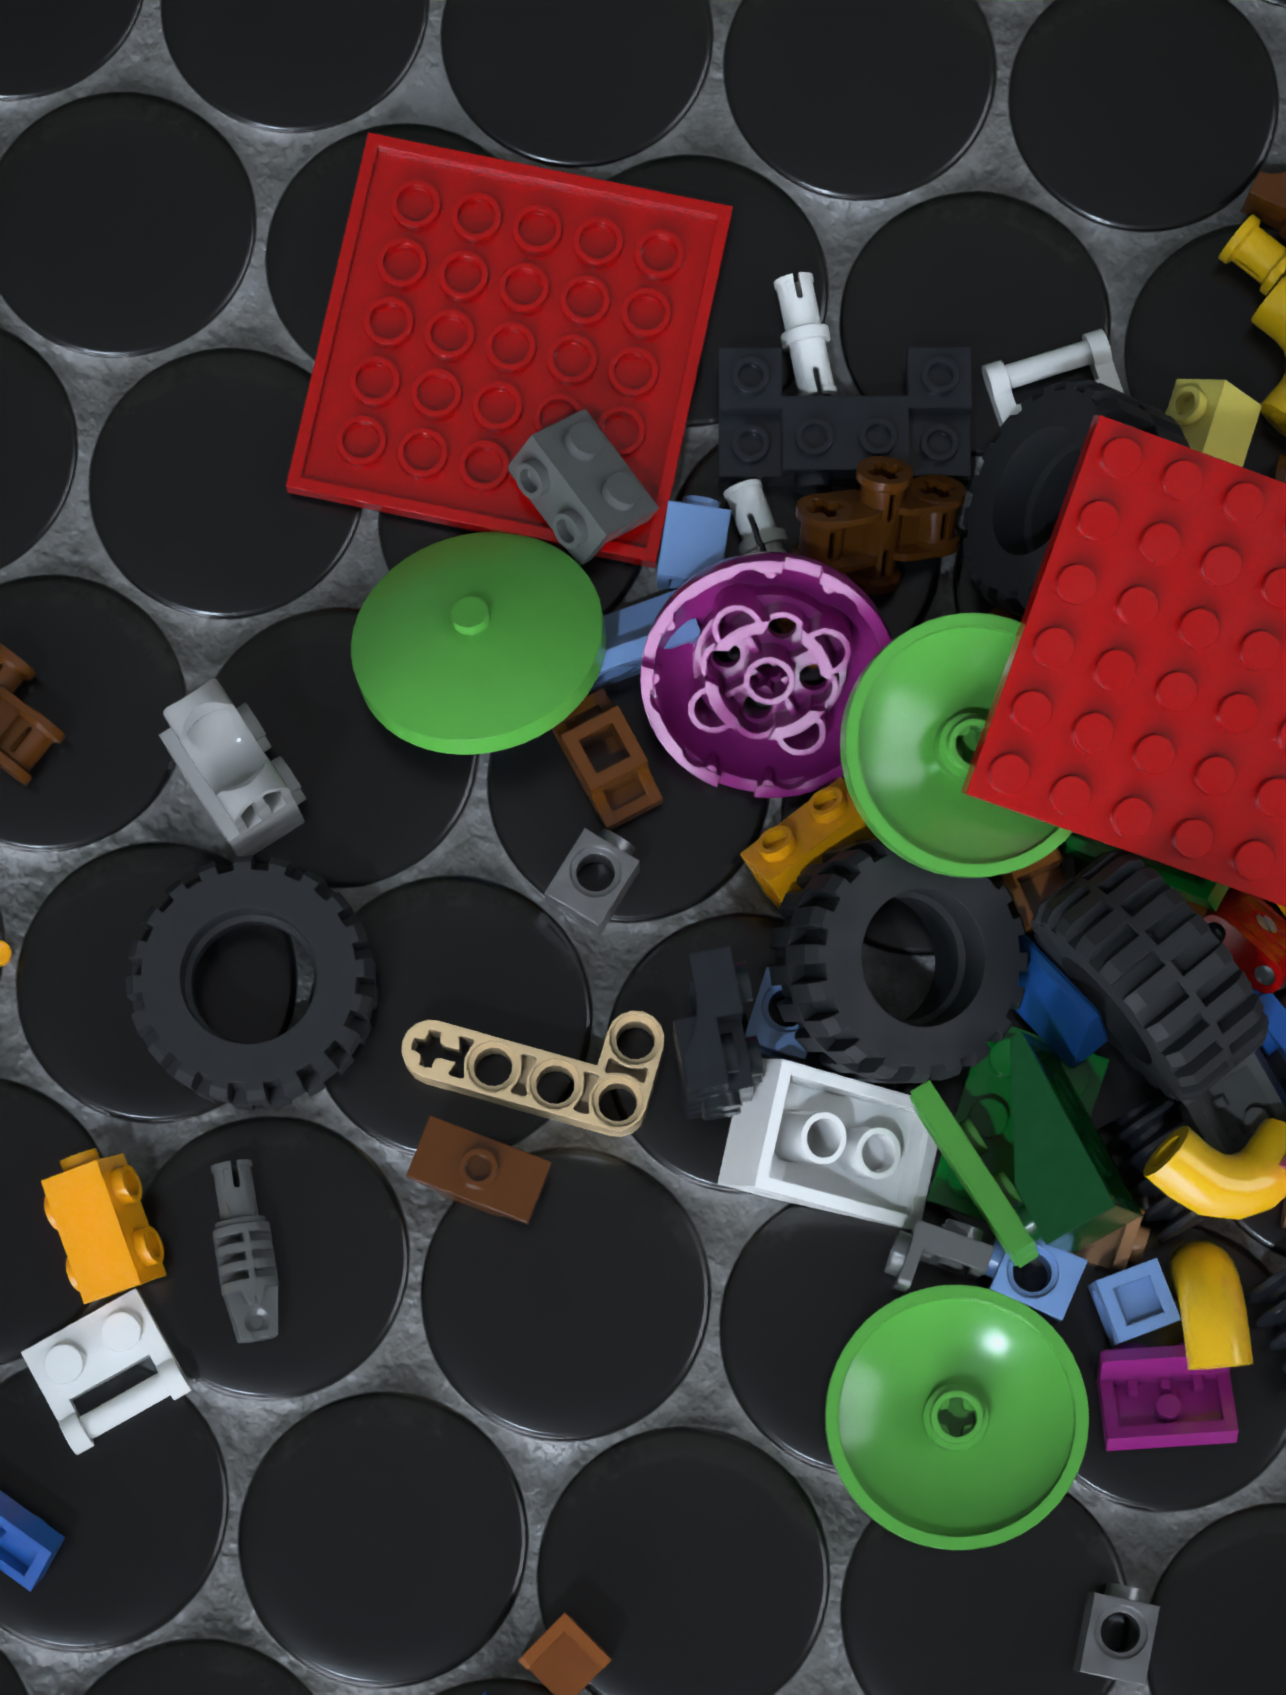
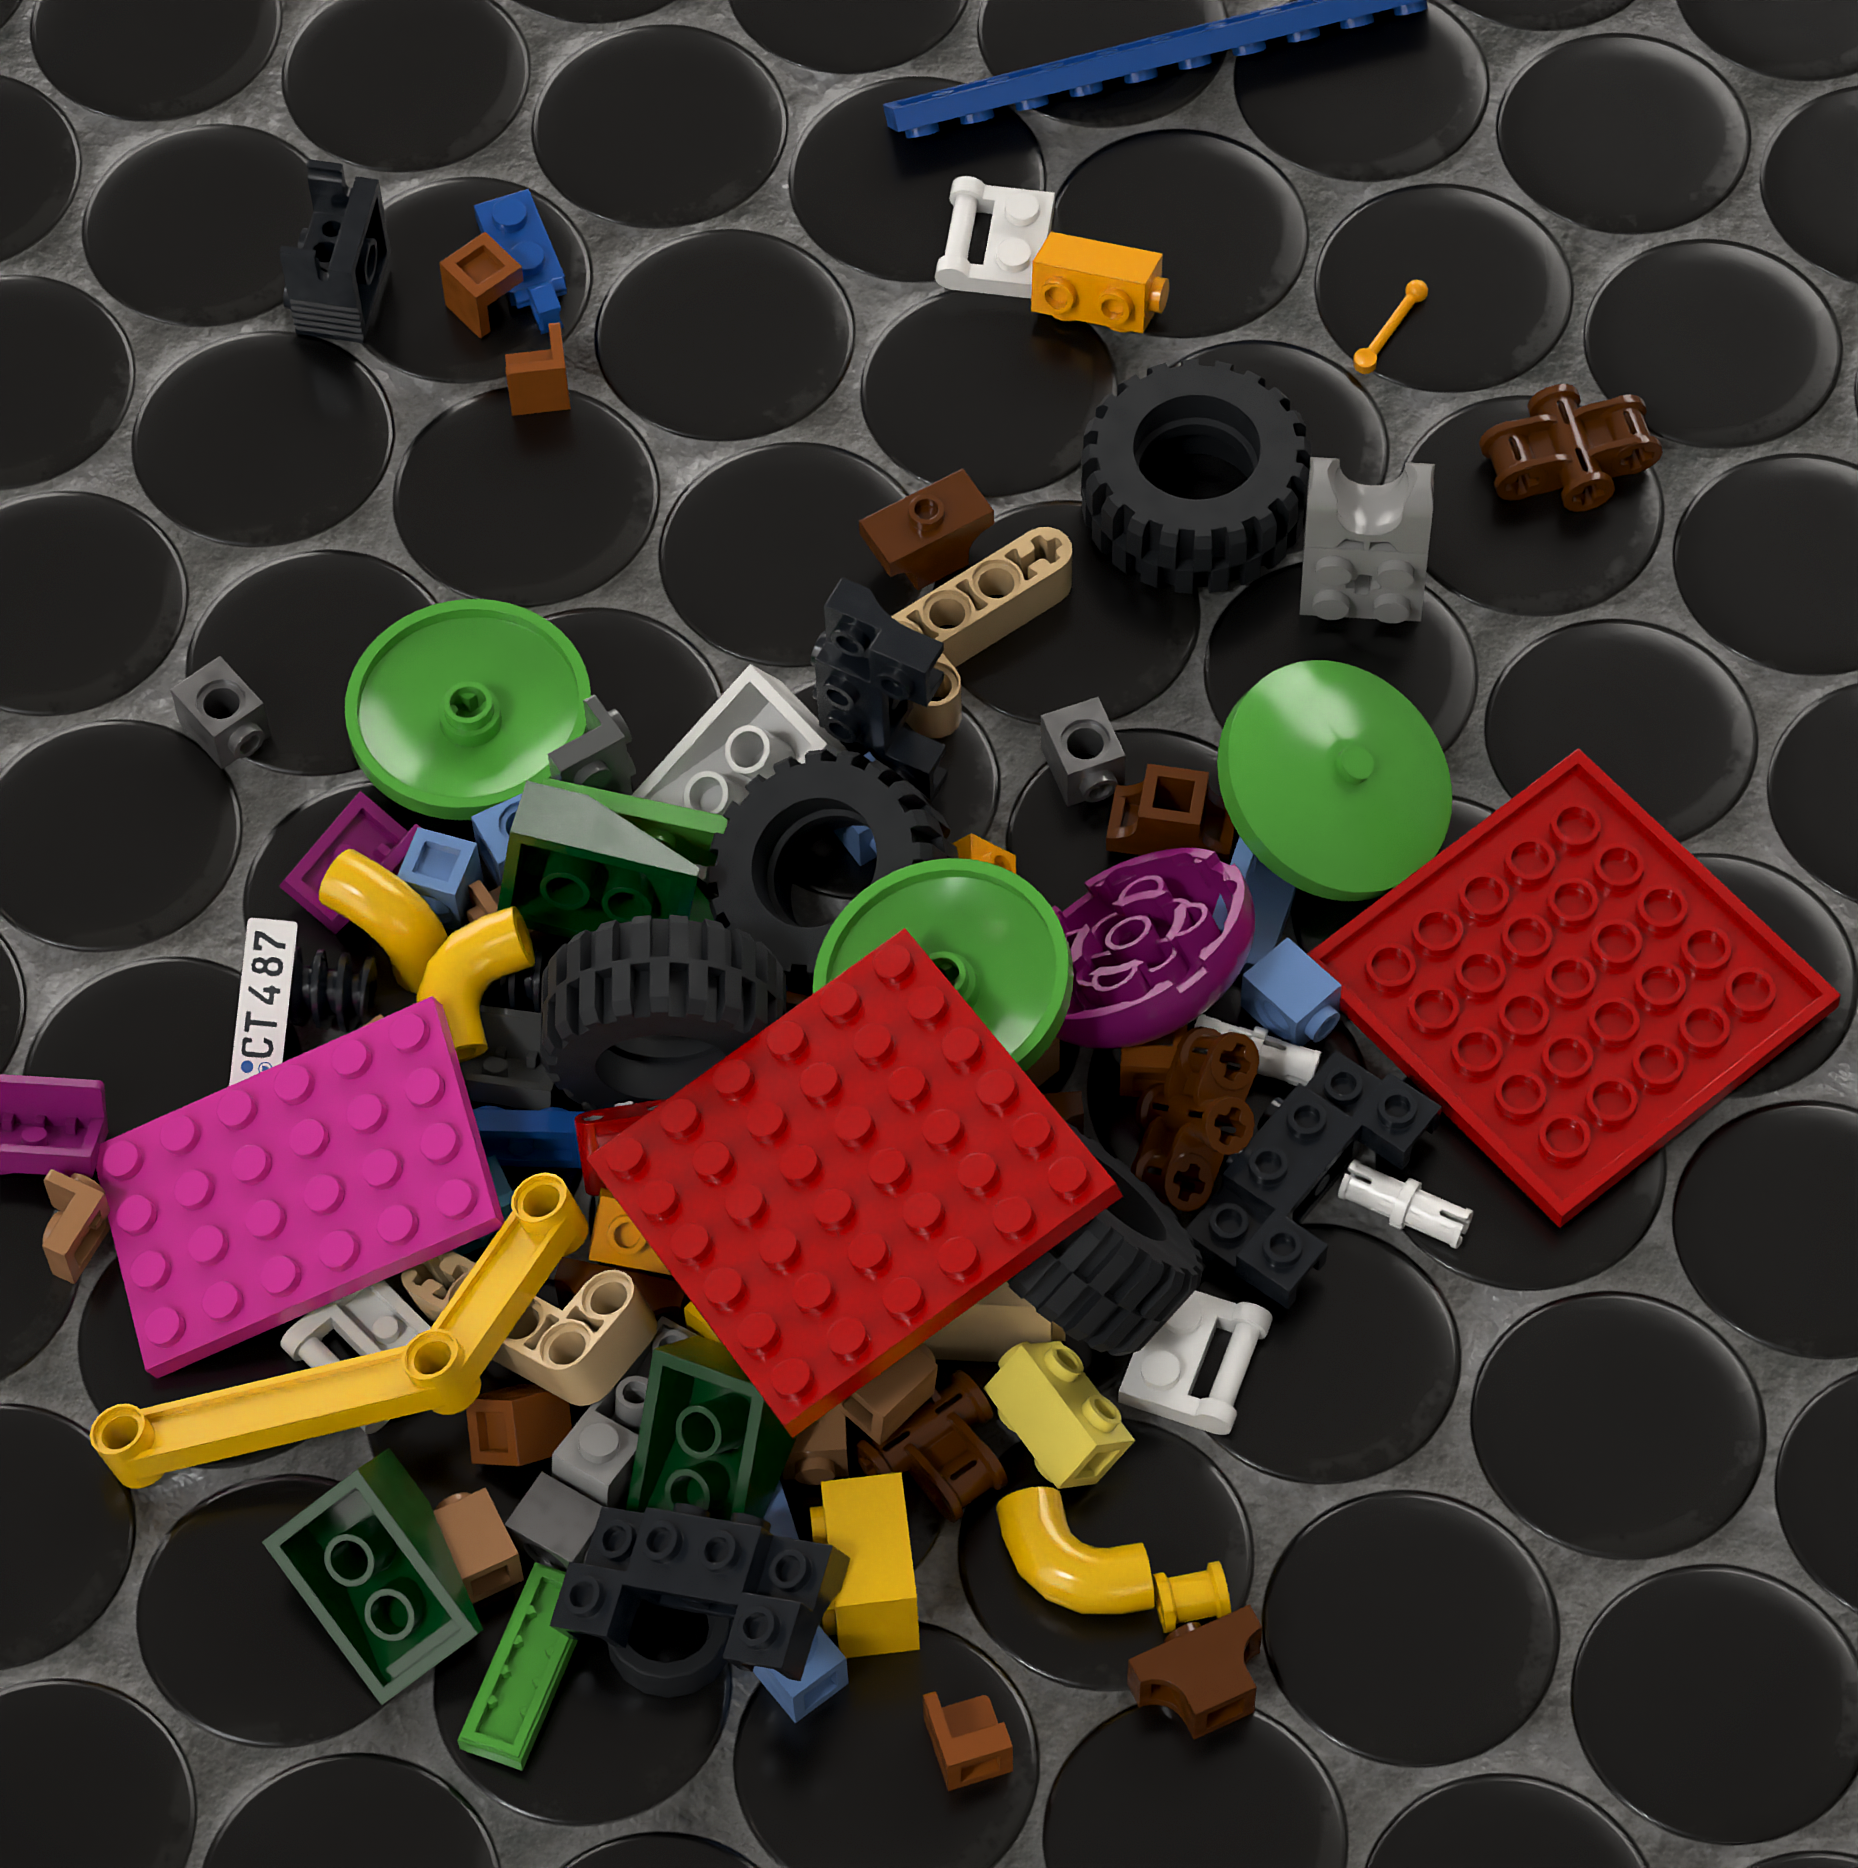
camera: 130 degrees right, 20 degrees down
(245, 1255) = (1001, 363): dark grey hinge -> none
(581, 485) = (1405, 937): dark grey bracket -> none

